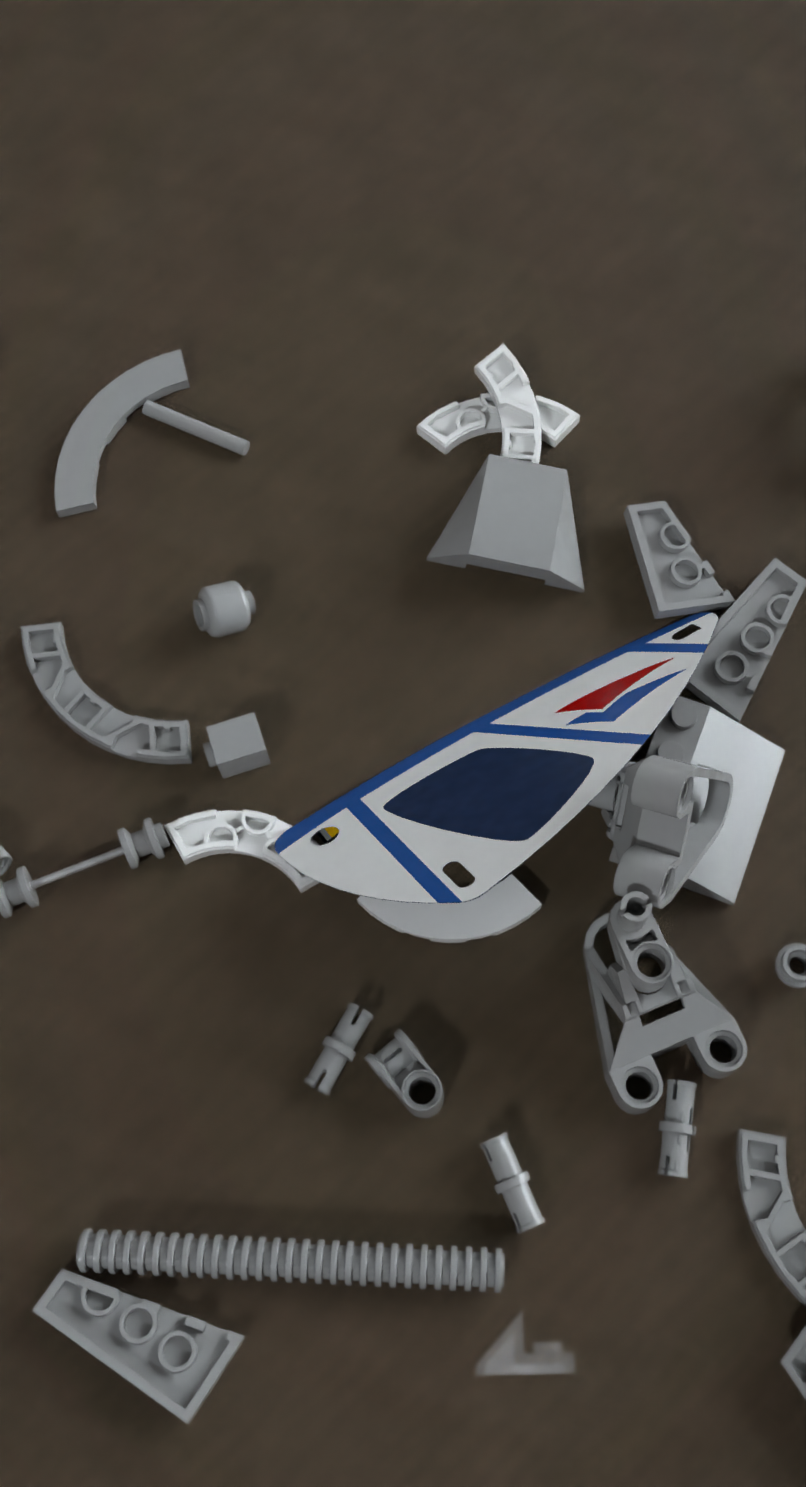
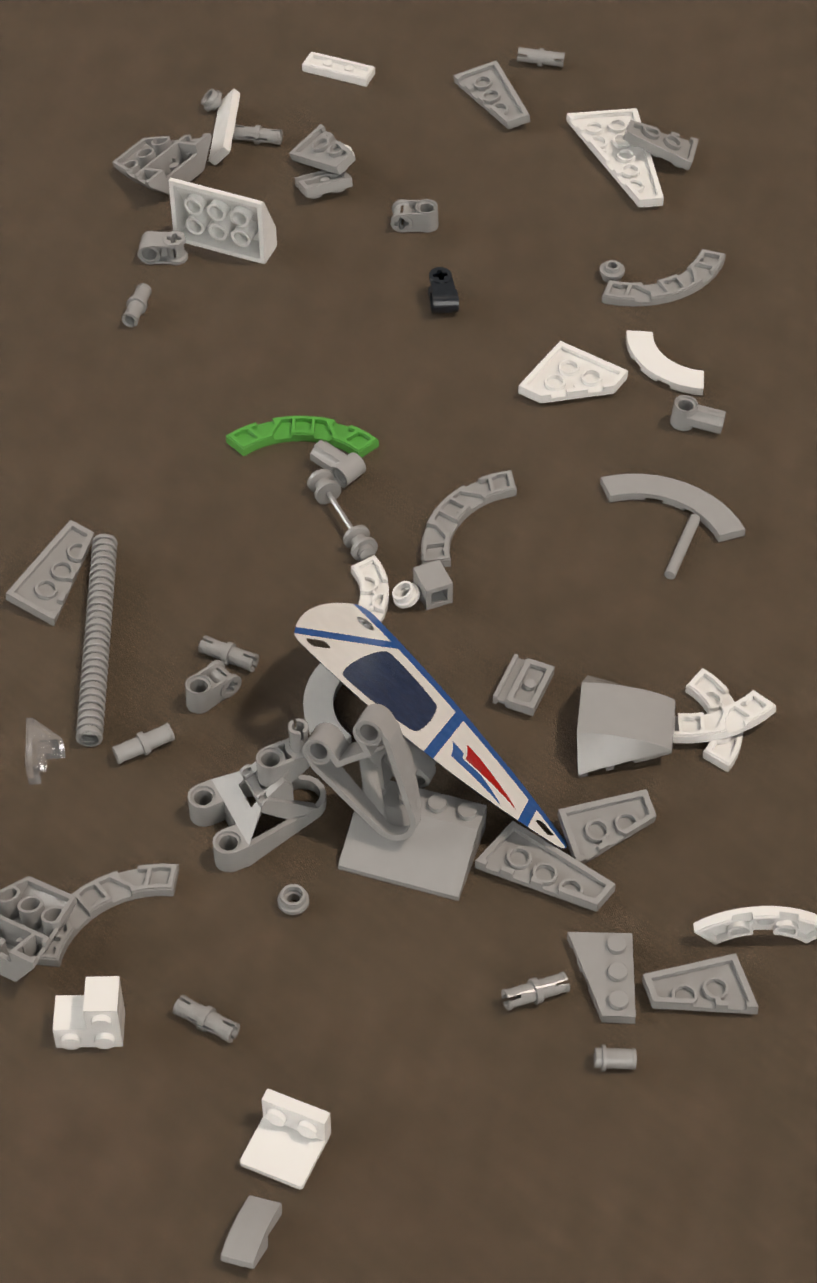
camera: 80 degrees right, 20 degrees down
(223, 608) = (533, 568): light grey head -> none
(238, 787) = (405, 594): none -> white plate
(432, 640) = (523, 684): none -> light grey plate
(677, 1128) = (178, 829): light grey pin -> none

